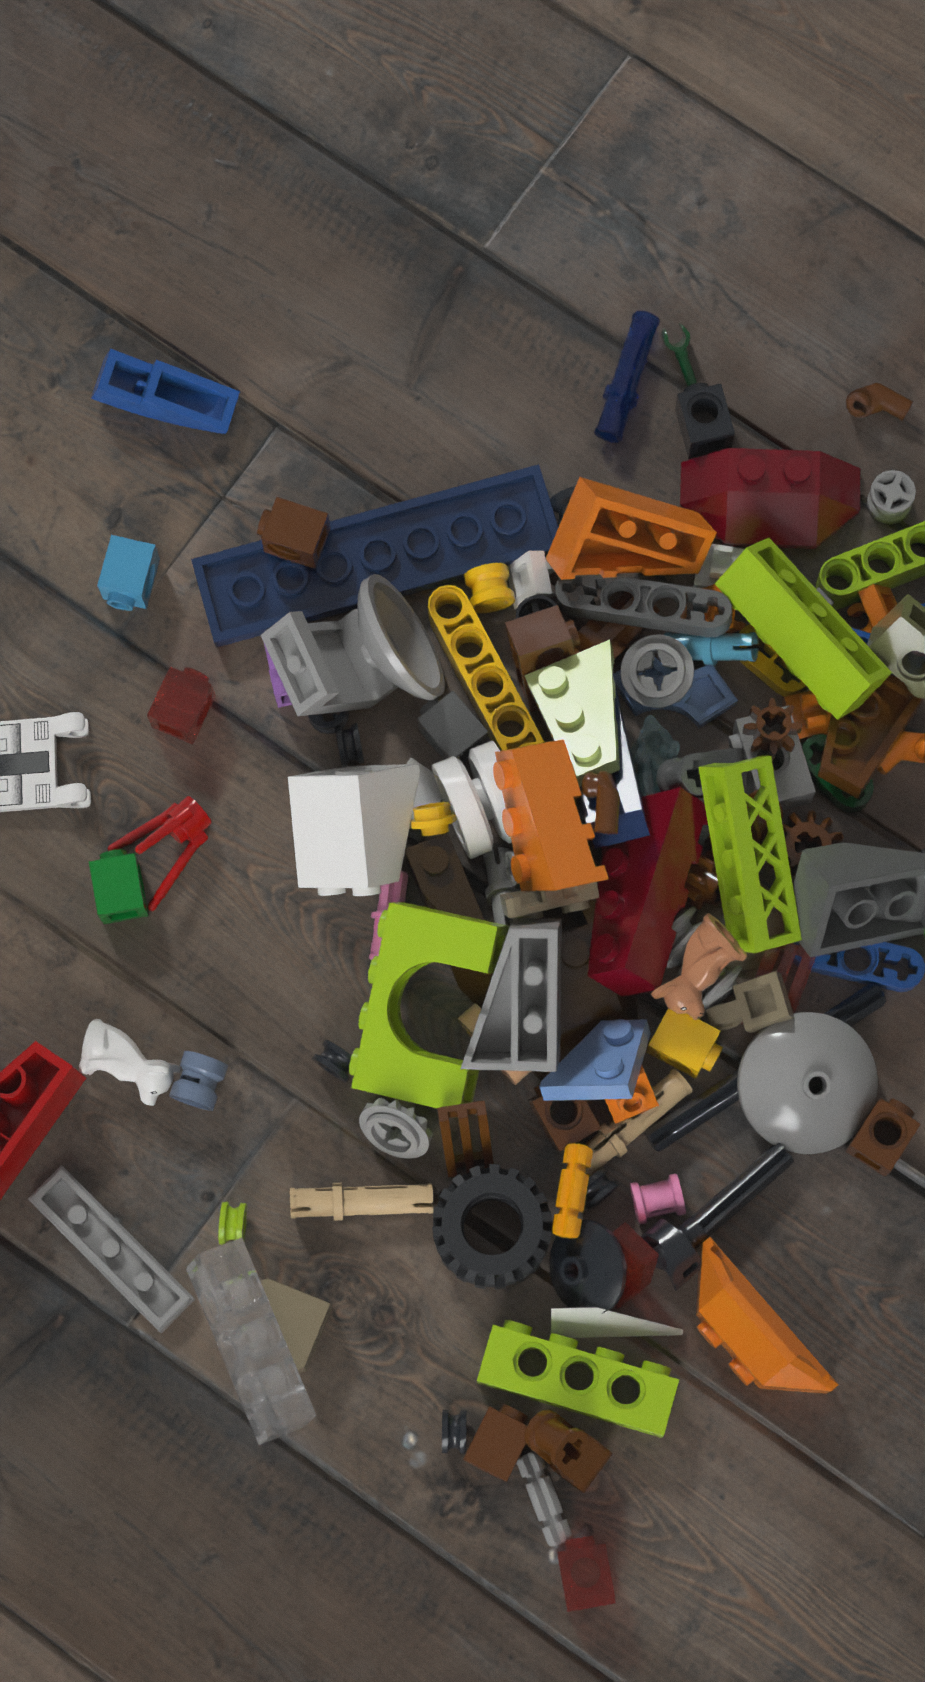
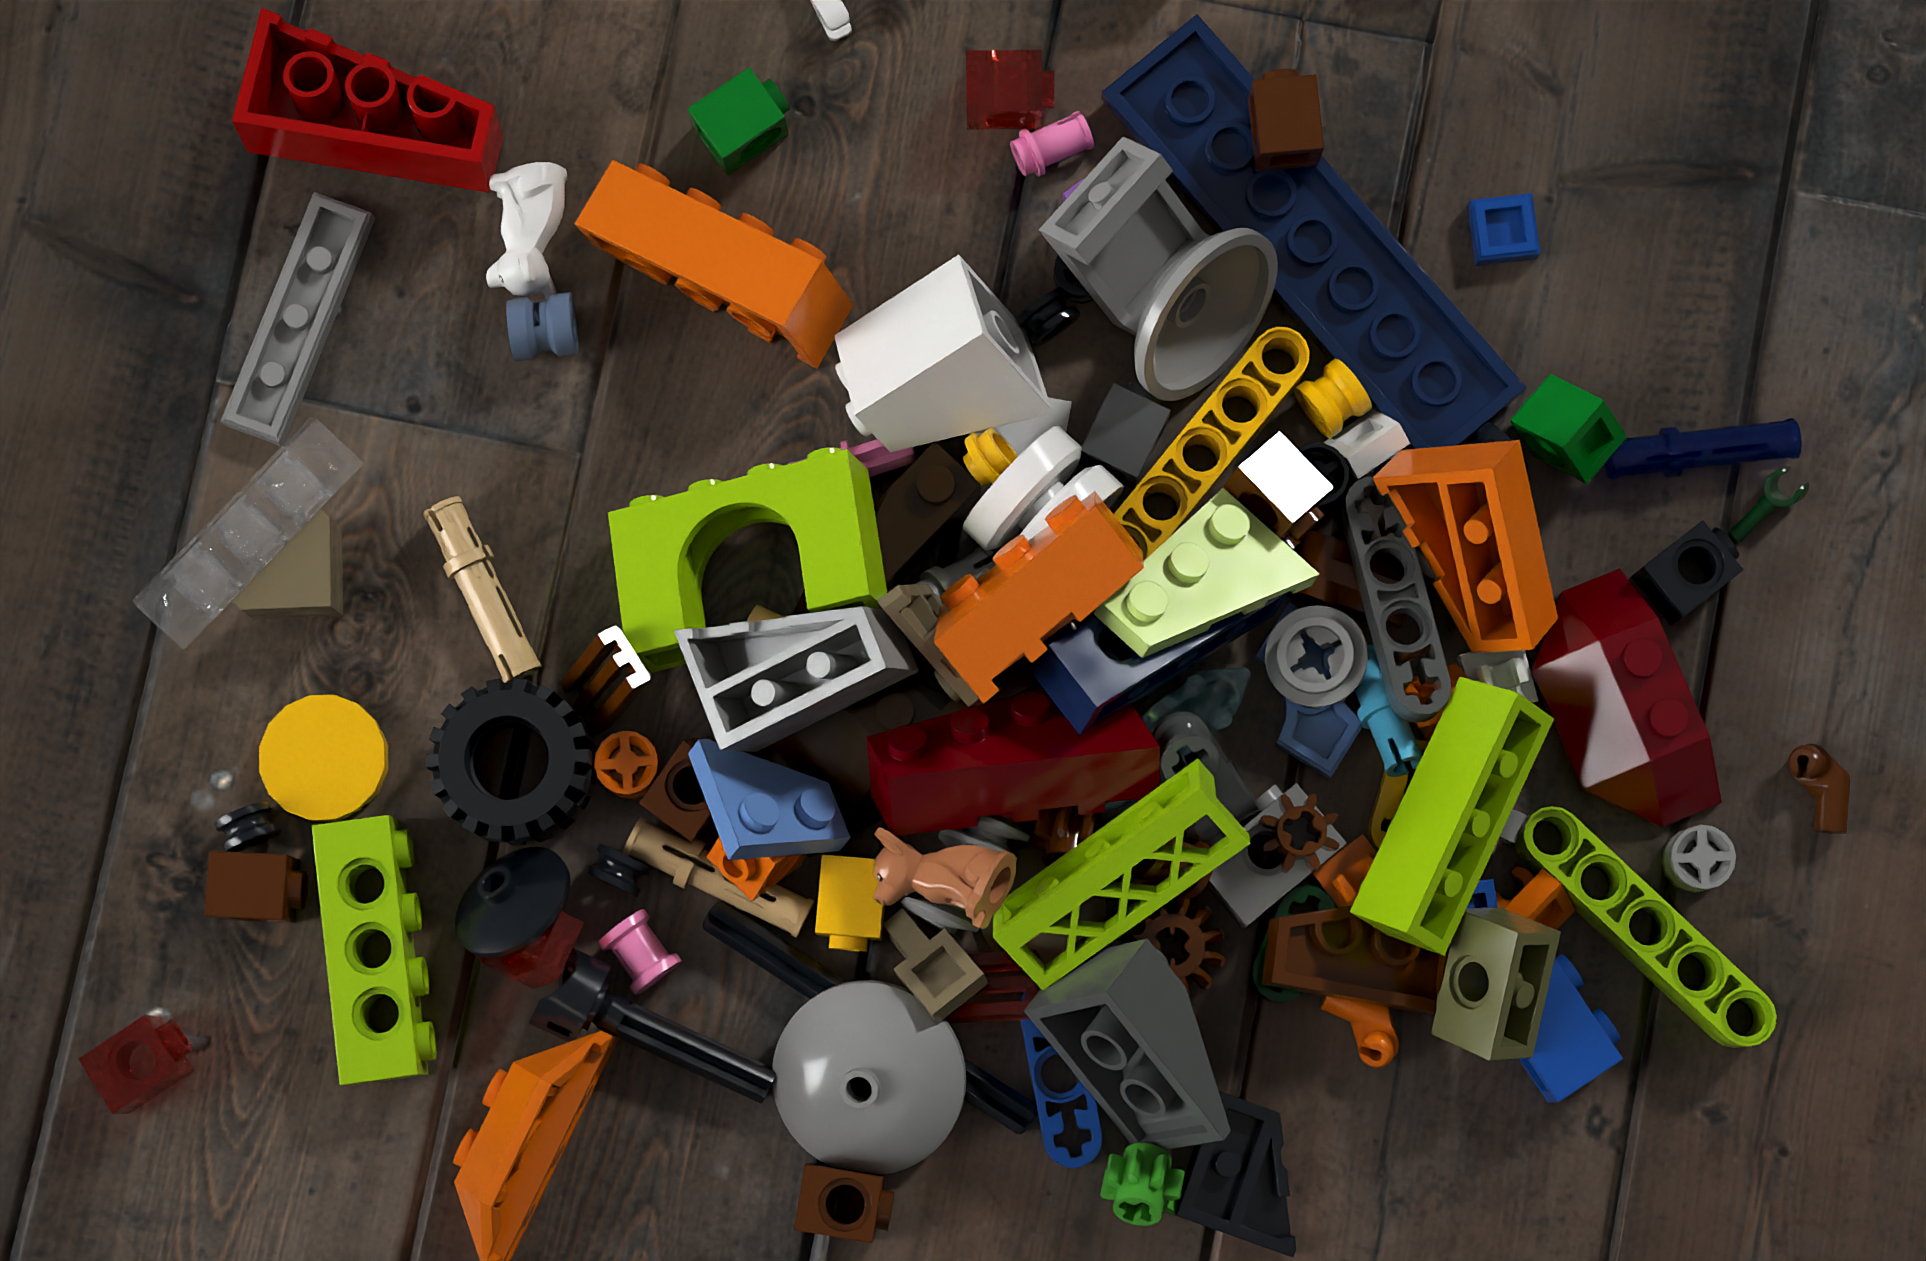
camera: 65 degrees right, 5 degrees up
(183, 823) = (858, 155): red plant -> none
(206, 942) = (717, 258): none -> orange wedge
(232, 692) = (1051, 144): none -> bright pink pin
(232, 1222) = (386, 447): lime bush -> none
(334, 1060) = (639, 477): black bush -> none
(406, 1141) = (583, 589): light grey gear -> none
(425, 434) = (1503, 229): none -> blue tile
(428, 1360) = (323, 758): none -> yellow tile
(529, 1144) = (616, 755): none -> orange wheel
(544, 1499) = (214, 972): light grey axle -> none
(567, 1449) = (278, 975): reddish brown piece -> none
(572, 1191) = (594, 839): light orange axle -> none
(578, 449) = (1568, 428): none -> green brick
(592, 1323) = (450, 939): white sticker -> none
(607, 801) = (1082, 659): reddish brown arm -> none

